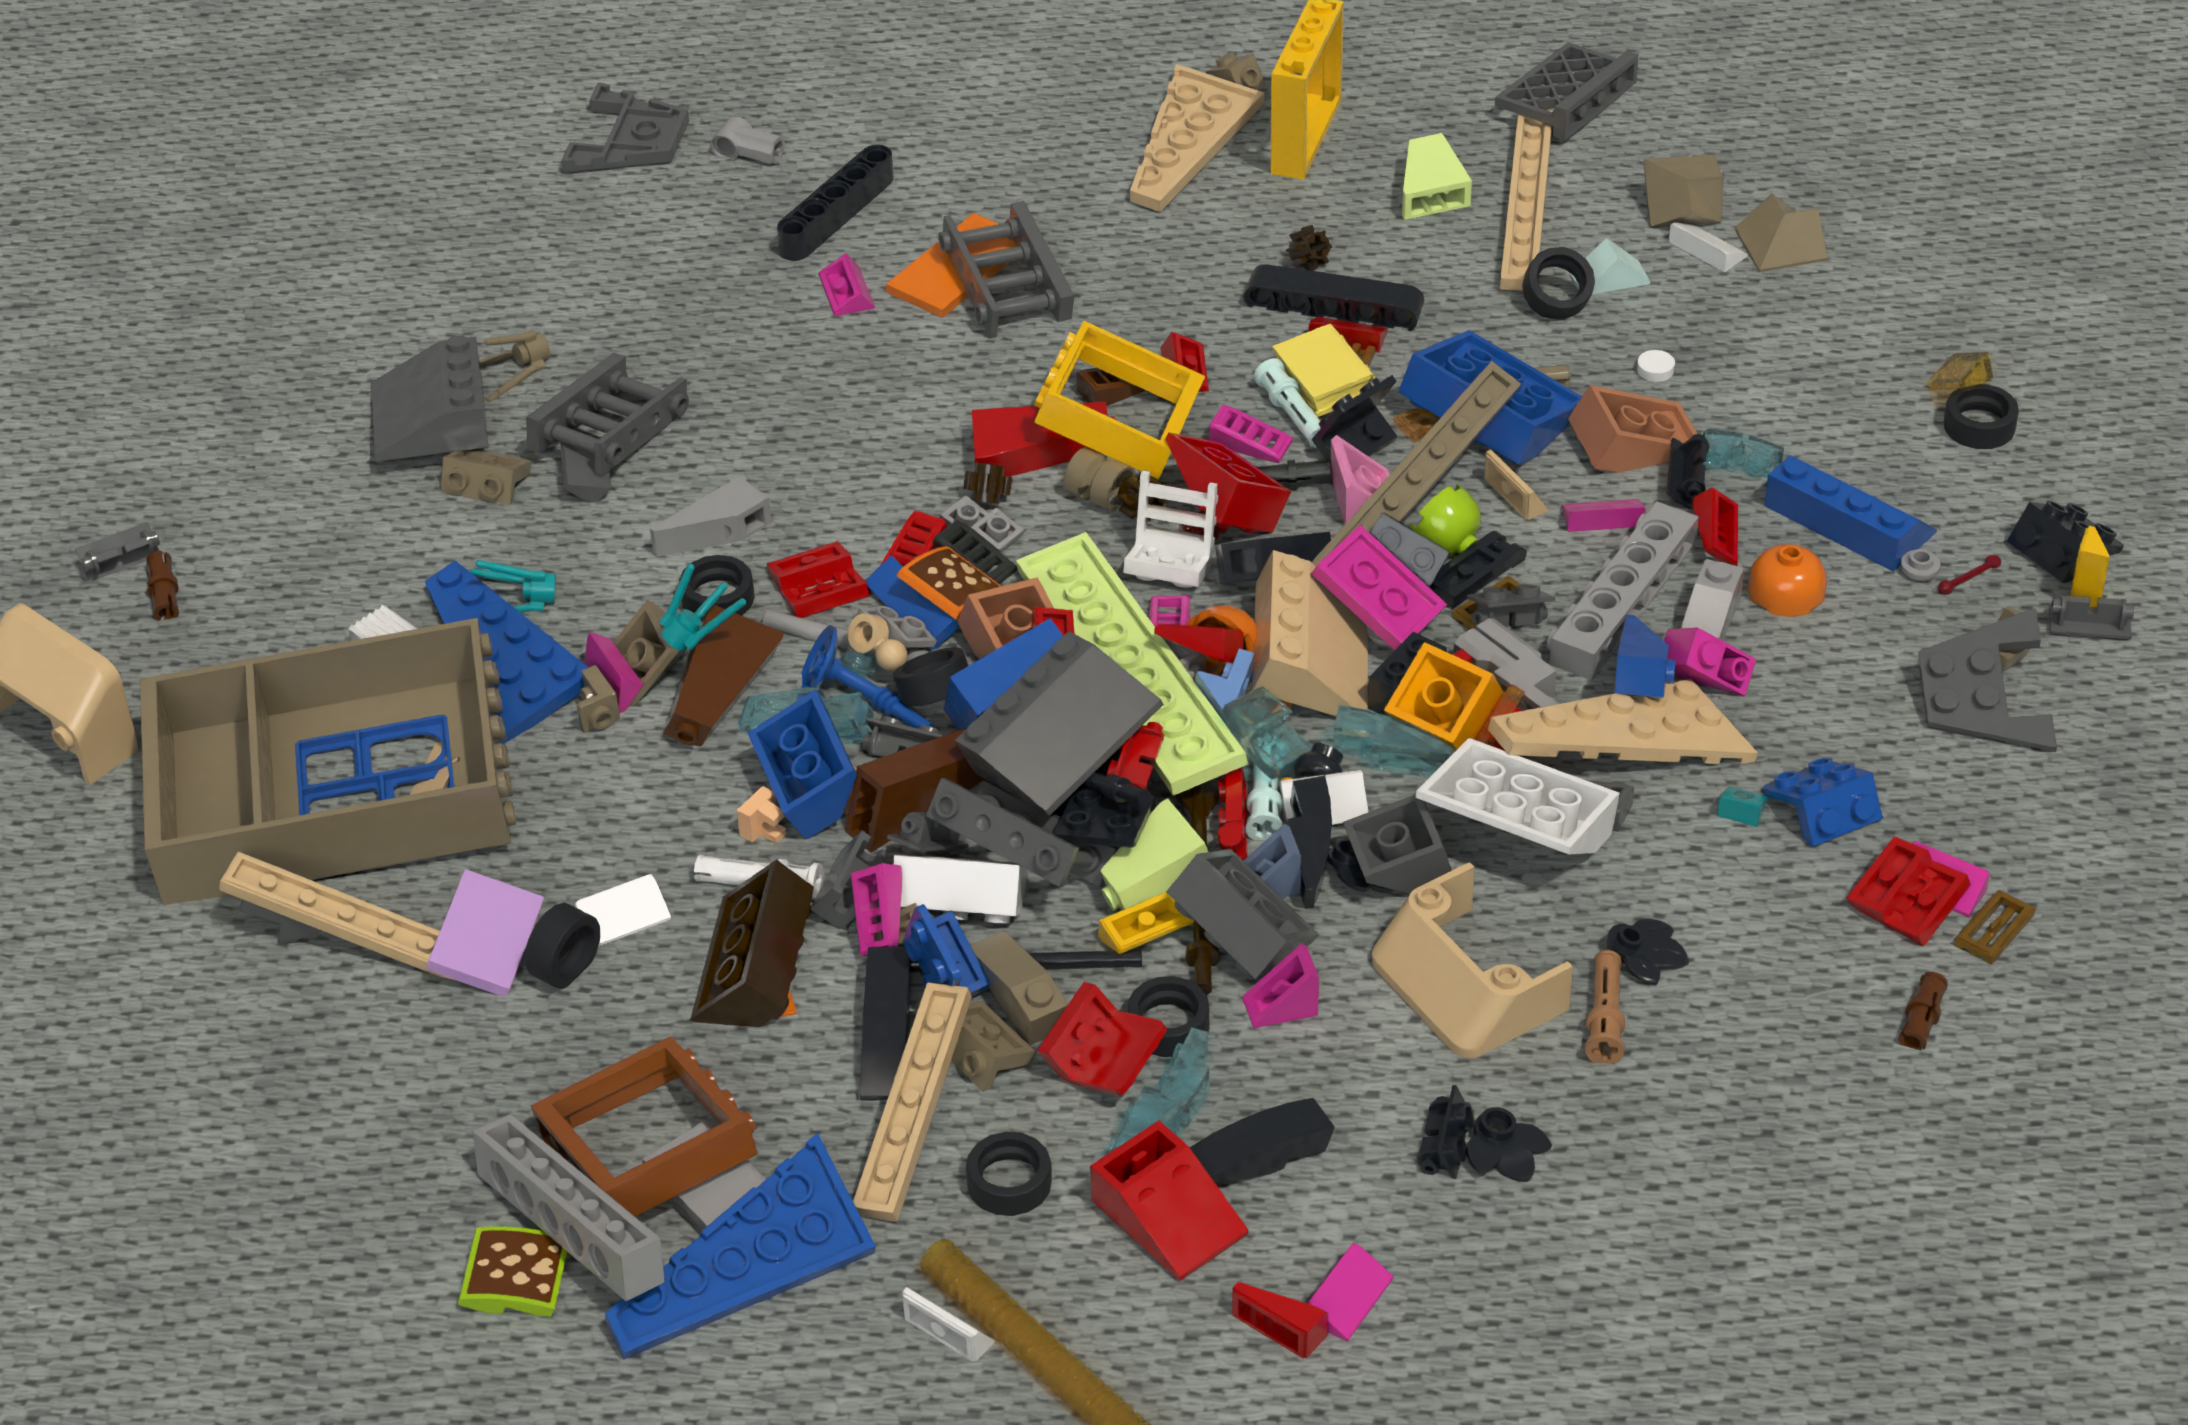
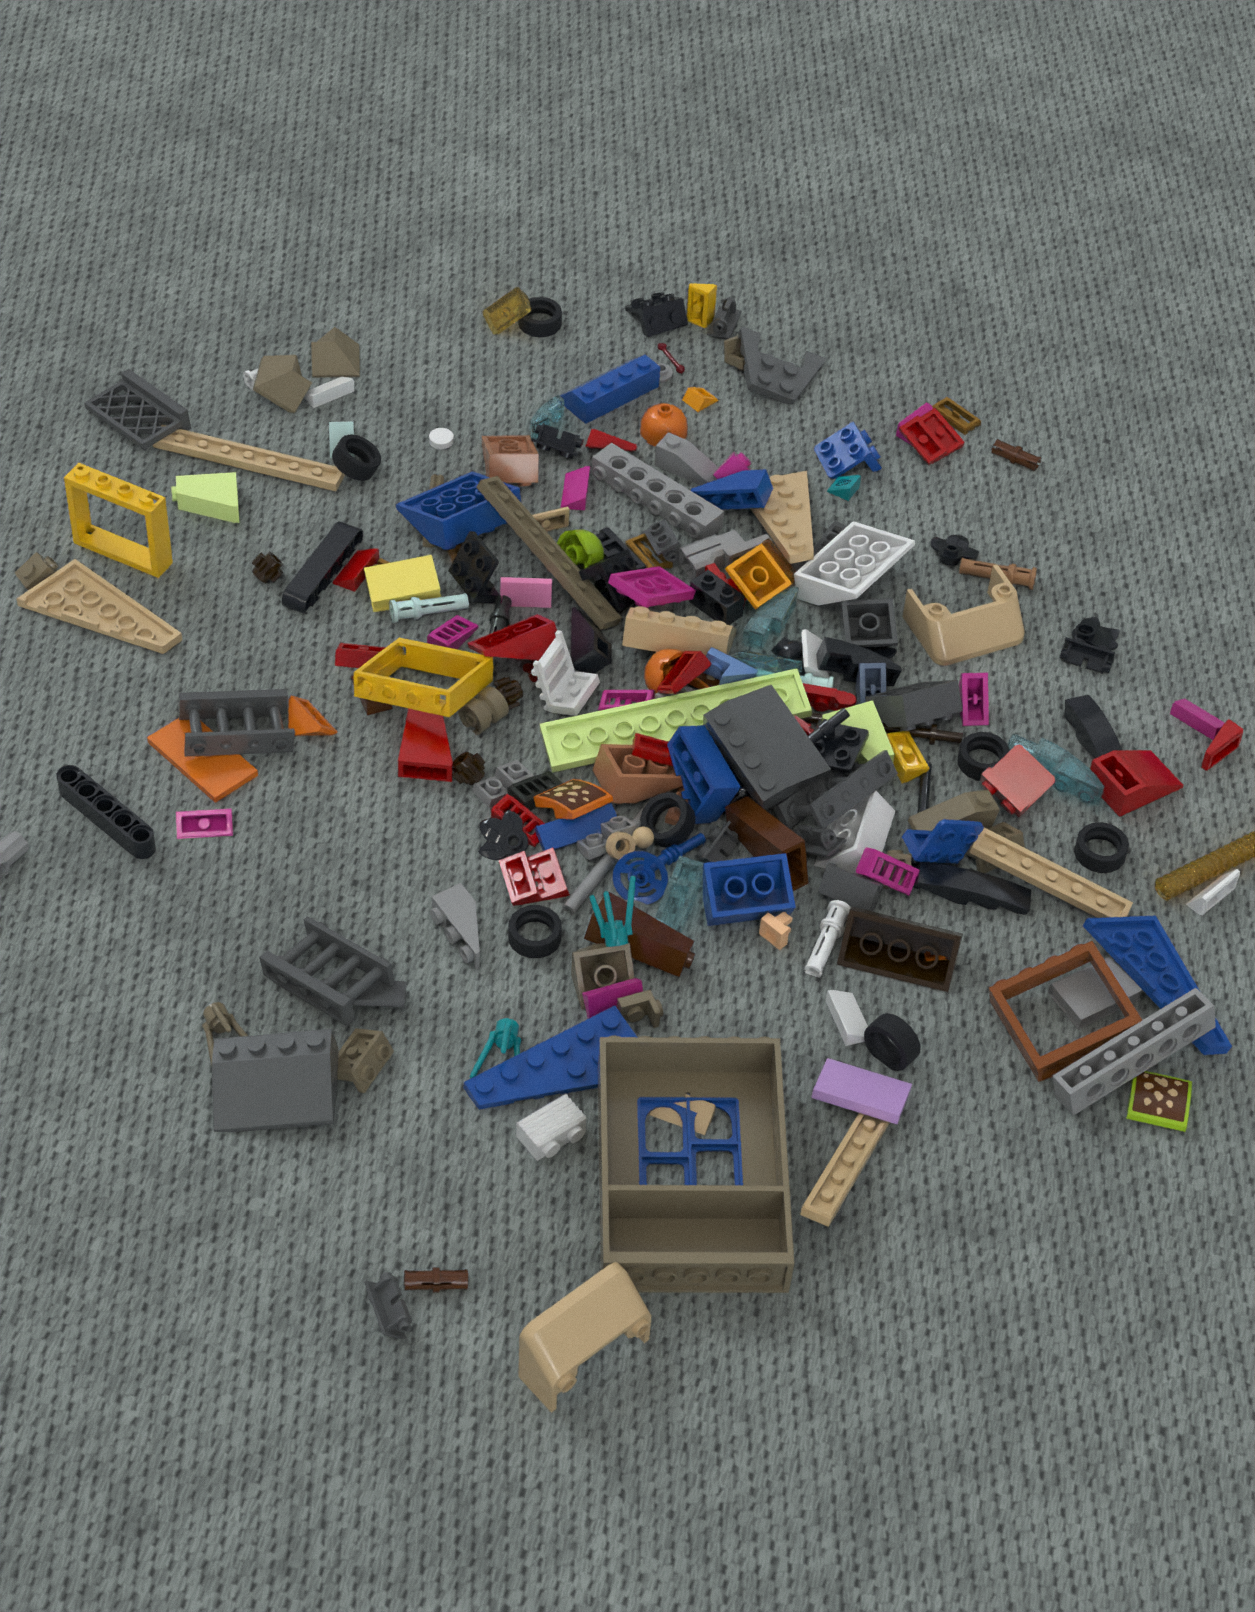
camera: 85 degrees left, 5 degrees up
(870, 541) = (500, 833): none -> black plate
(1045, 339) = (307, 719): none -> orange slope
(1885, 617) = (698, 398): none -> light orange slope

